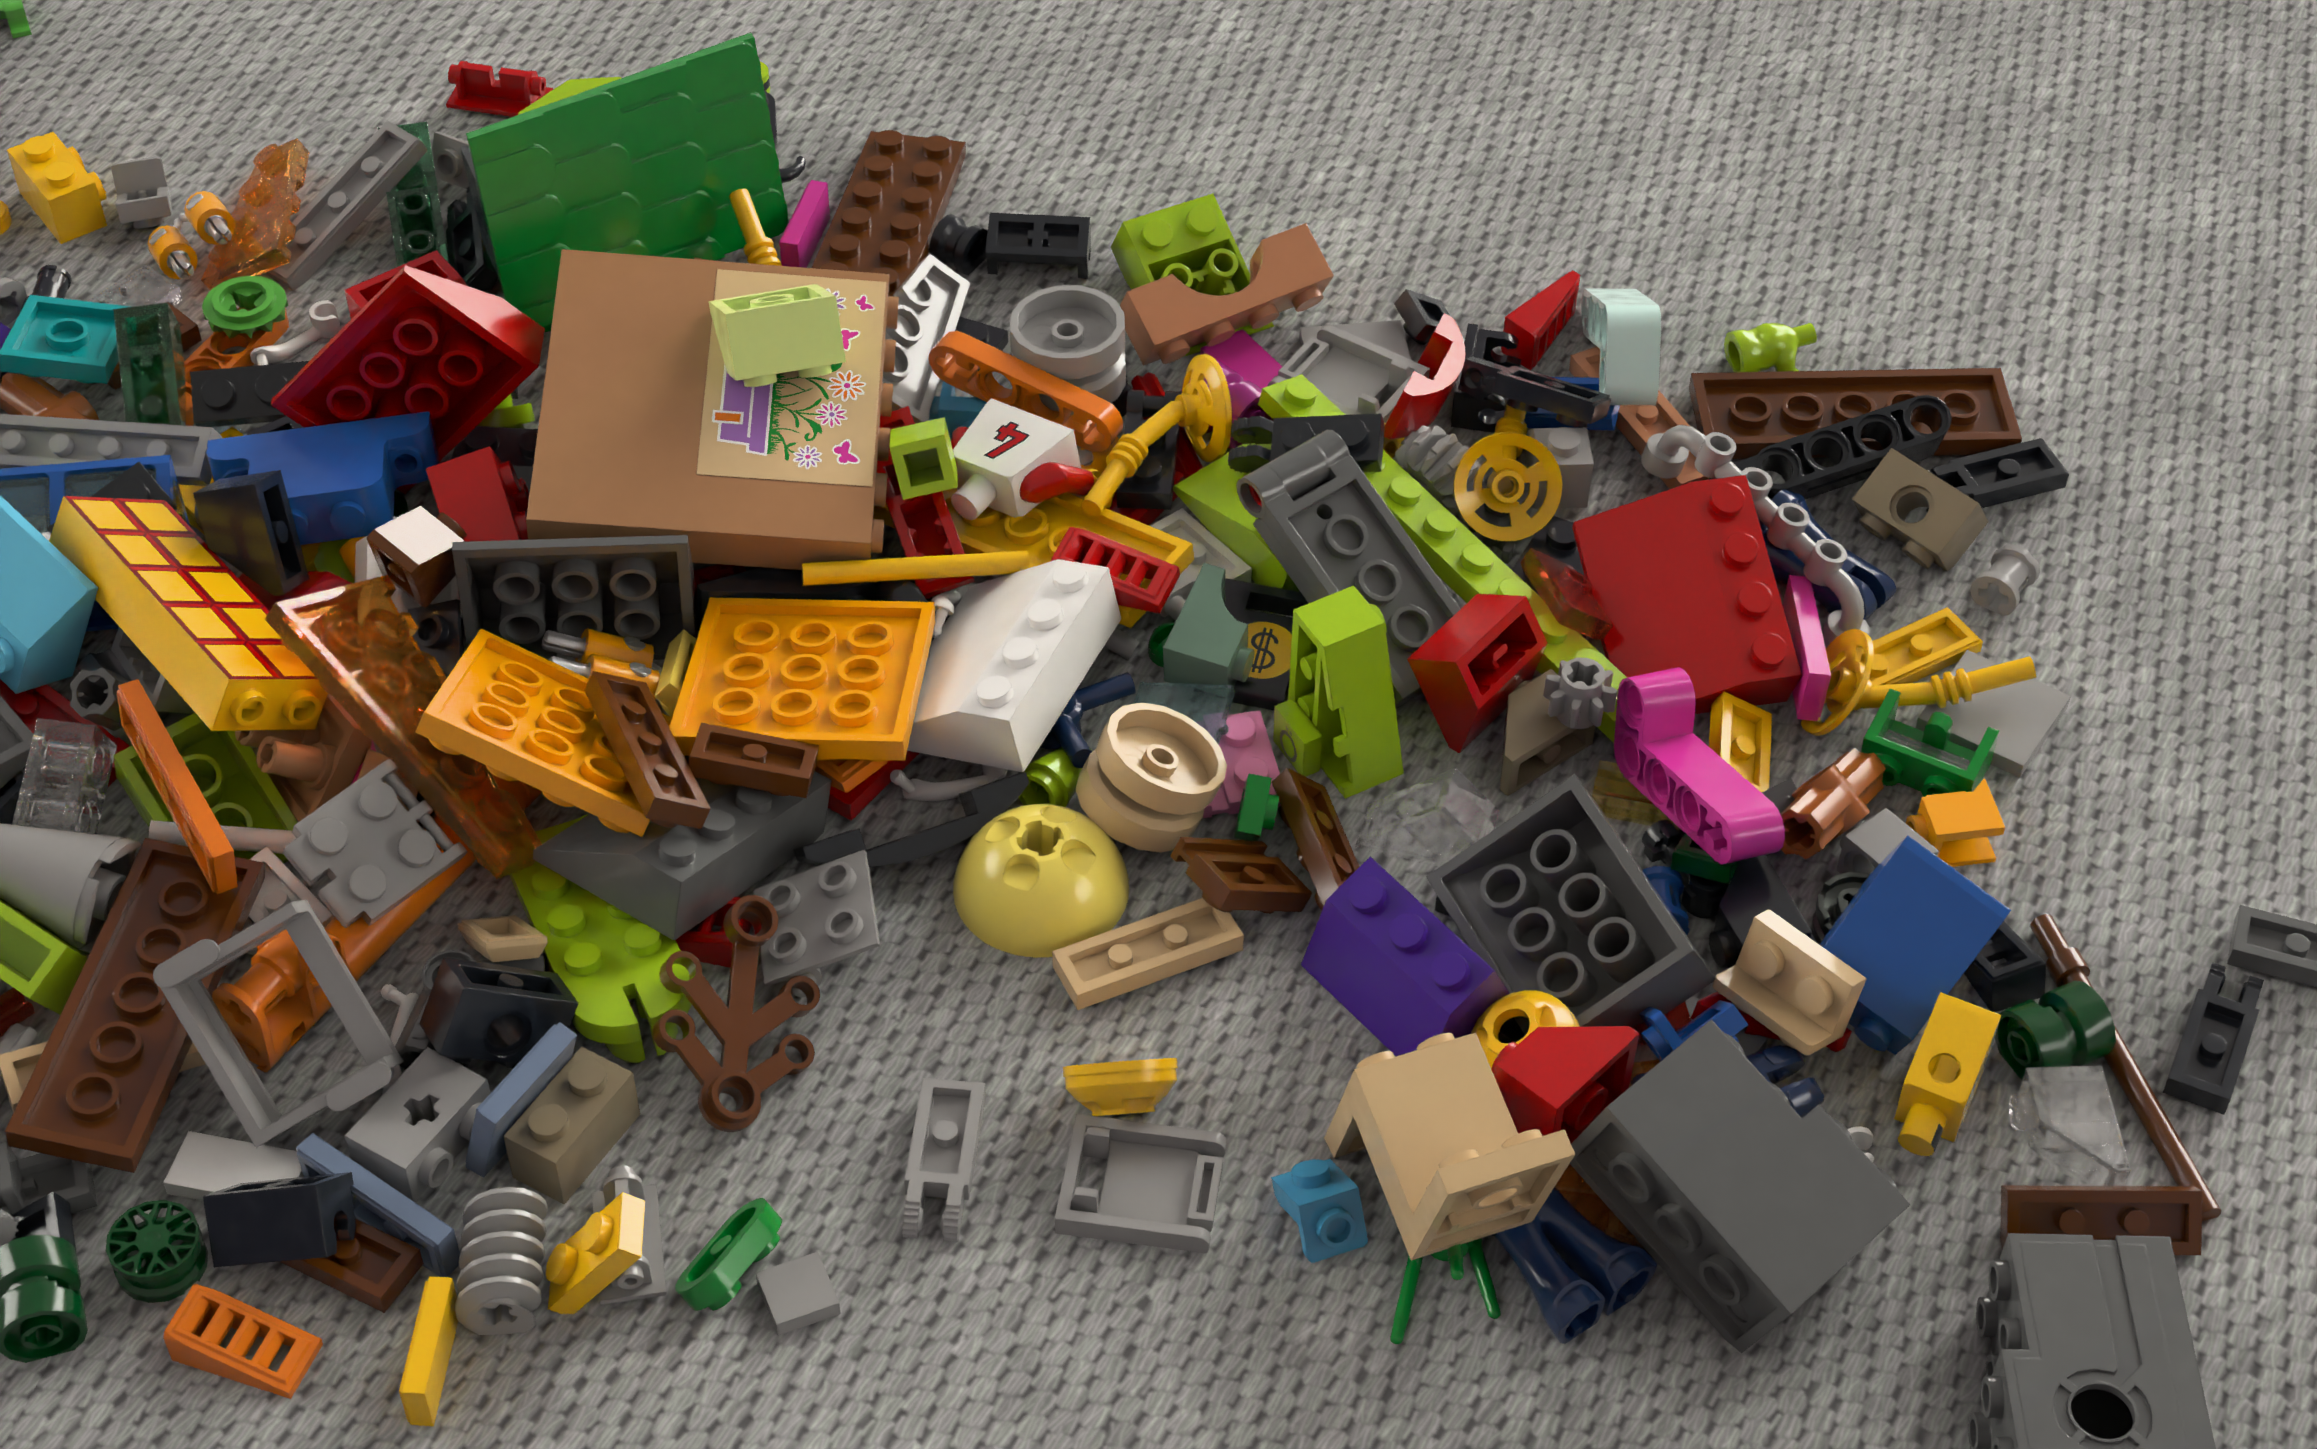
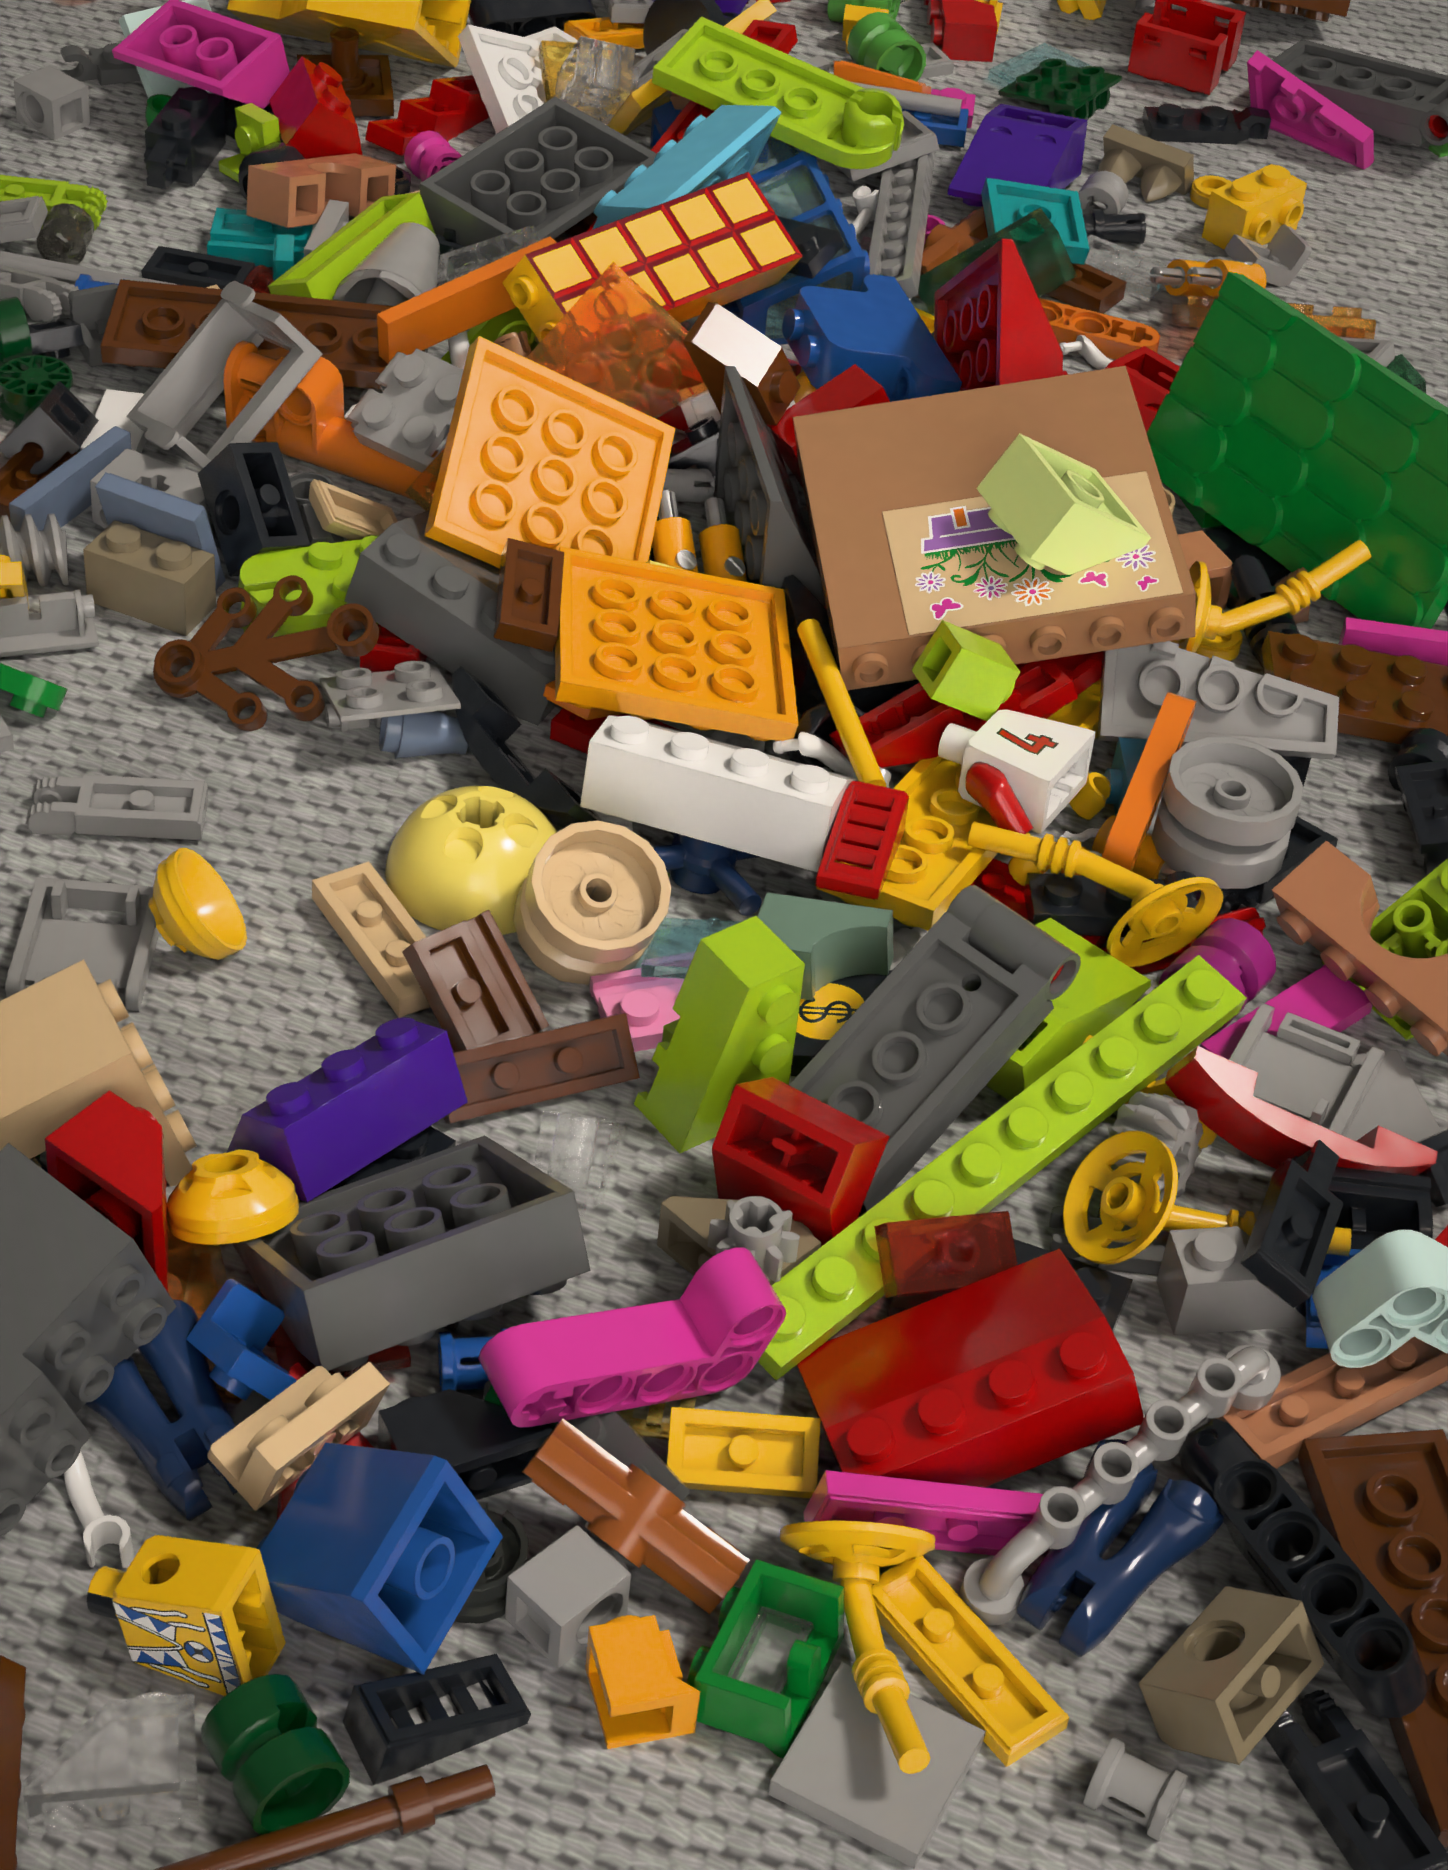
camera: 80 degrees right, 5 degrees down
(247, 292) = (1127, 315): bright green gear -> none
(253, 529) = (771, 286): black slope -> none
(647, 751) = (483, 520): reddish brown plate -> none
(1256, 808) = (574, 995): green plate -> none
(1360, 432) = (1109, 996): black hinge -> none

